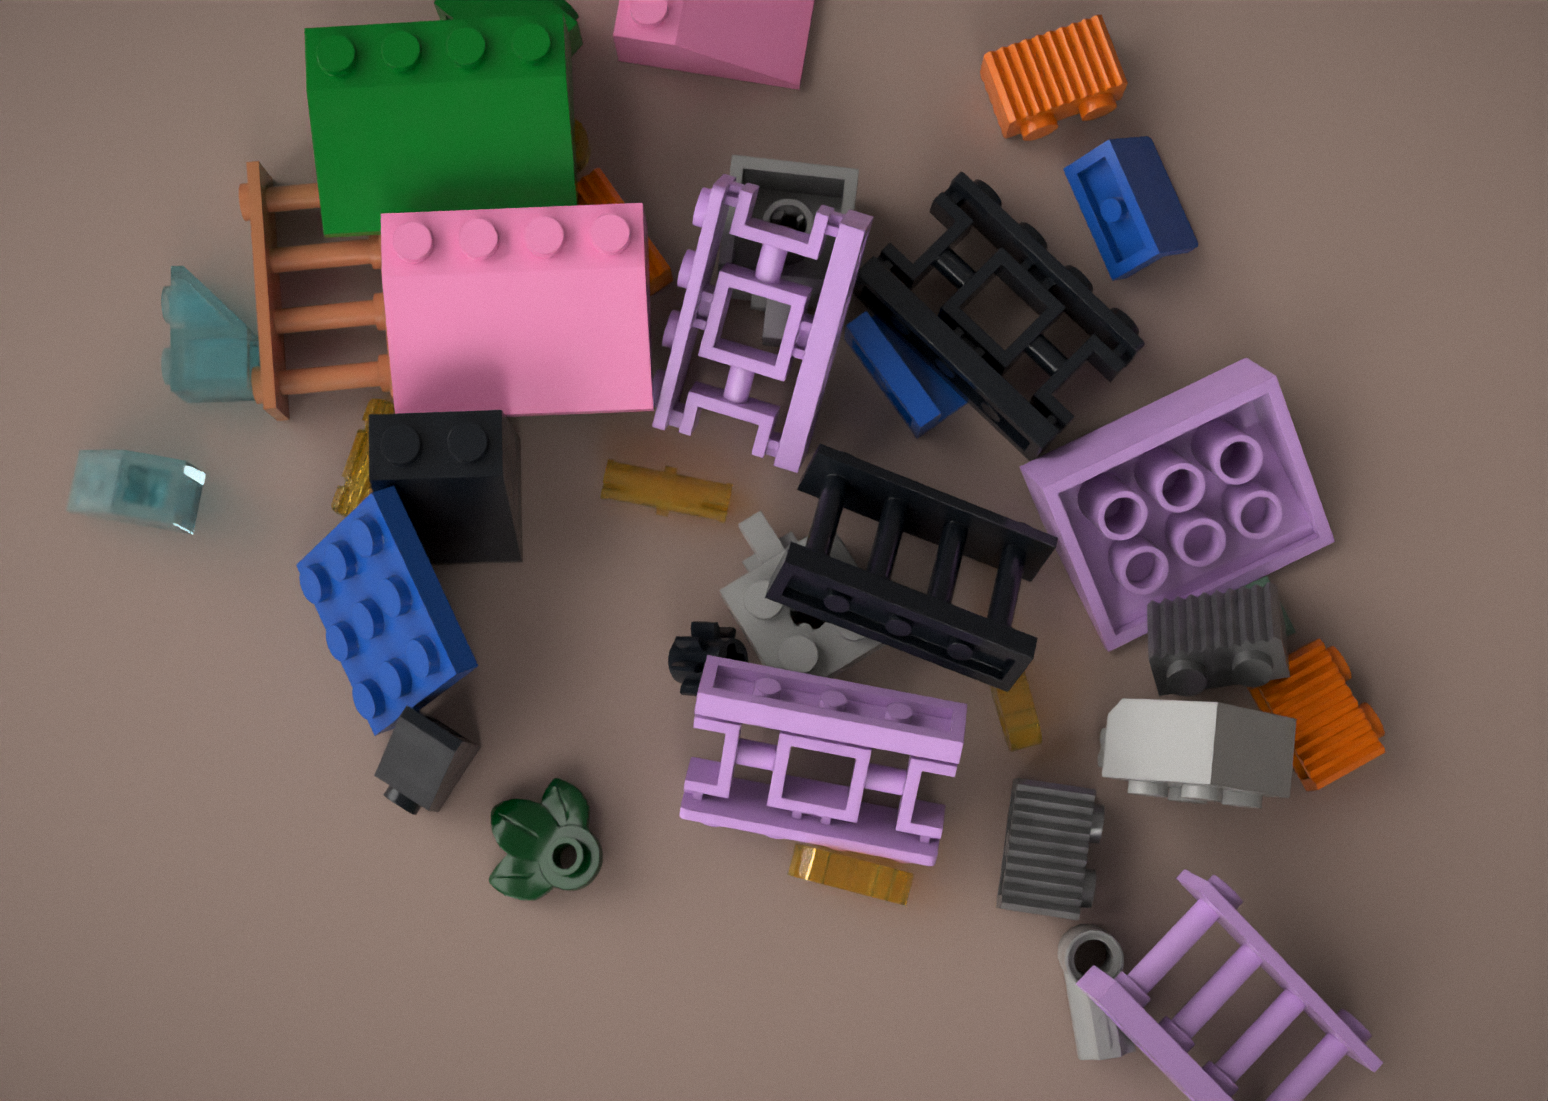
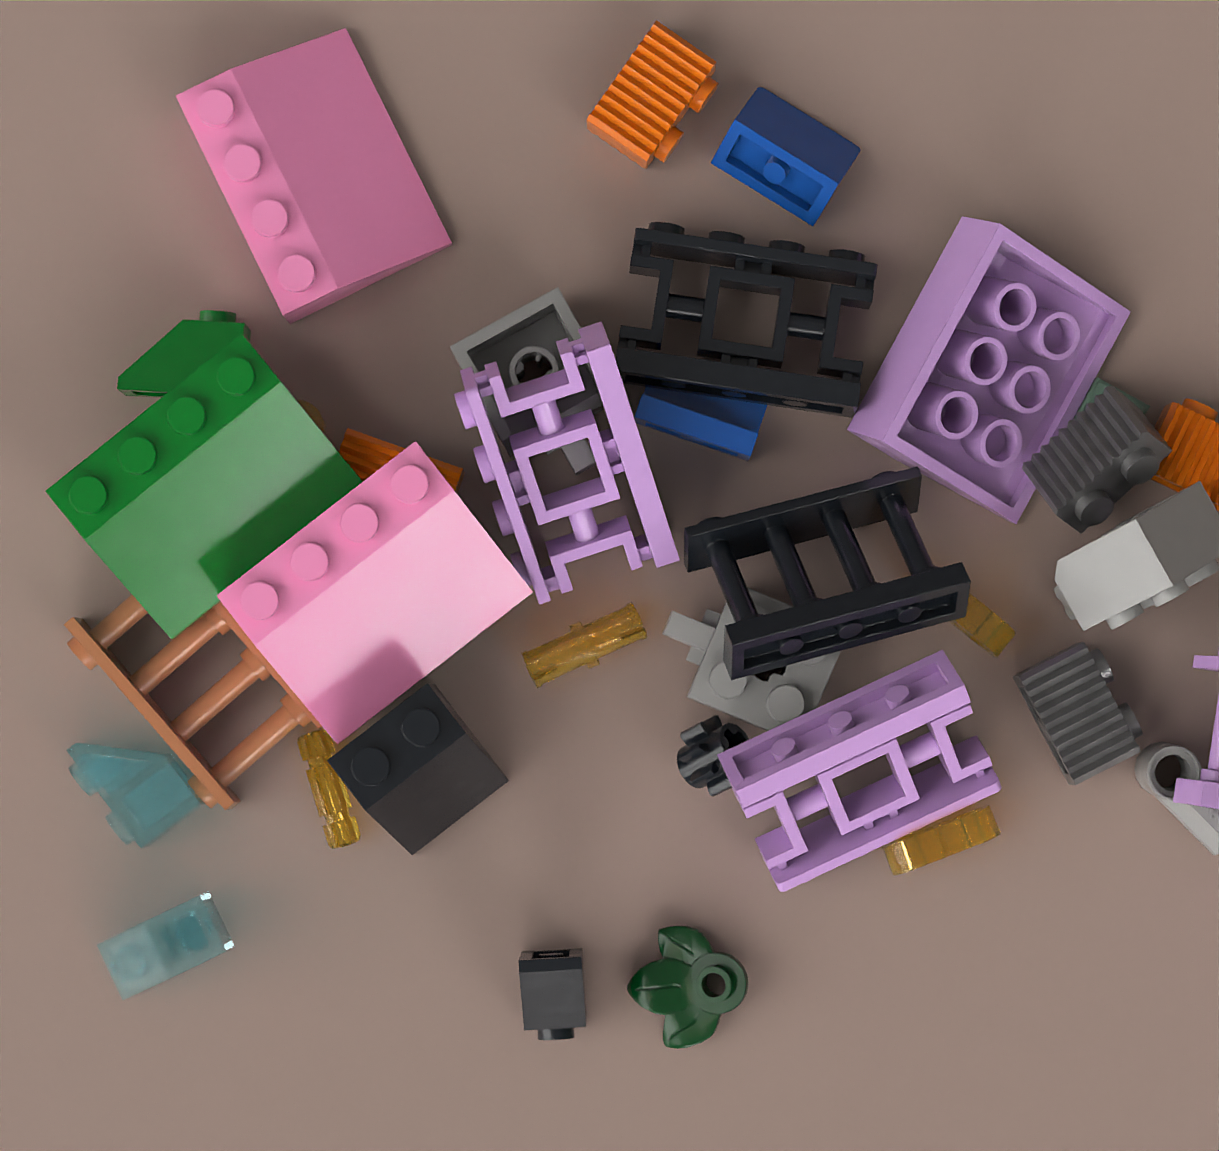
camera: 40 degrees left, 5 degrees up
(385, 611) = (442, 901): blue plate -> none

